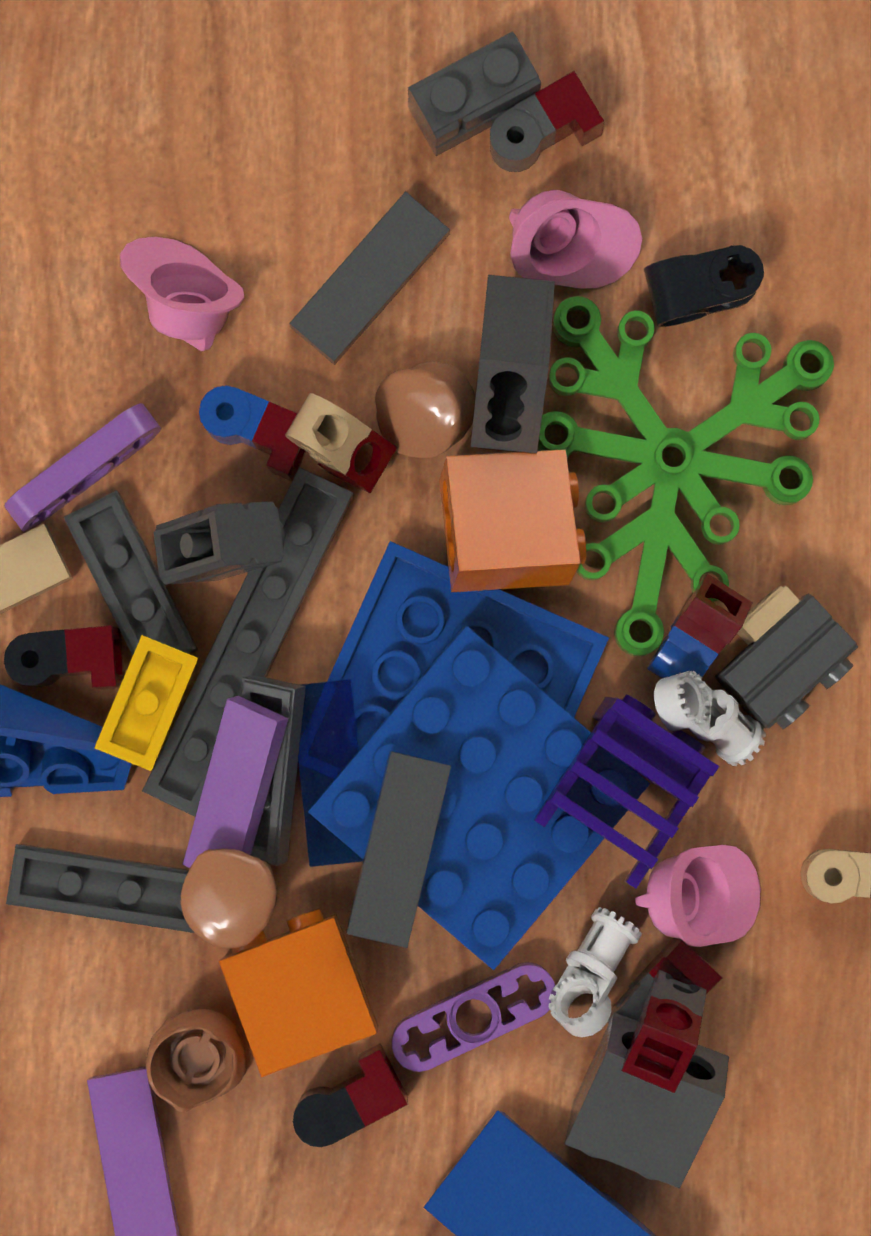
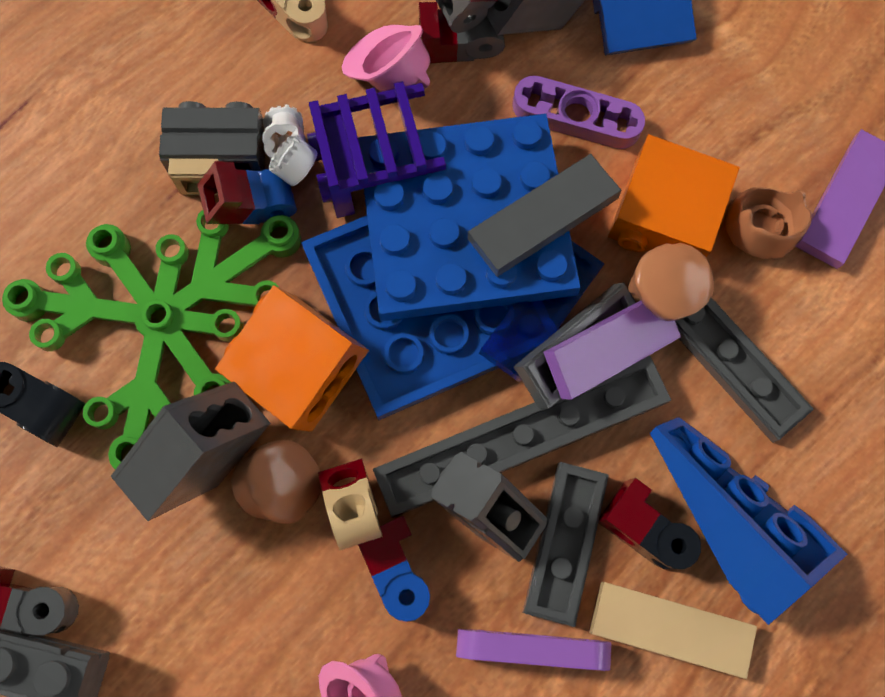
camera: 140 degrees left, 10 degrees down
(146, 703) = (625, 446): yellow panel -> none
(334, 1113) = (694, 121): leg -> none
(370, 278) = (229, 606): dark grey tile -> none
(573, 240) = (78, 507): bright pink piece -> none
(592, 972) = (486, 73): white connector -> none

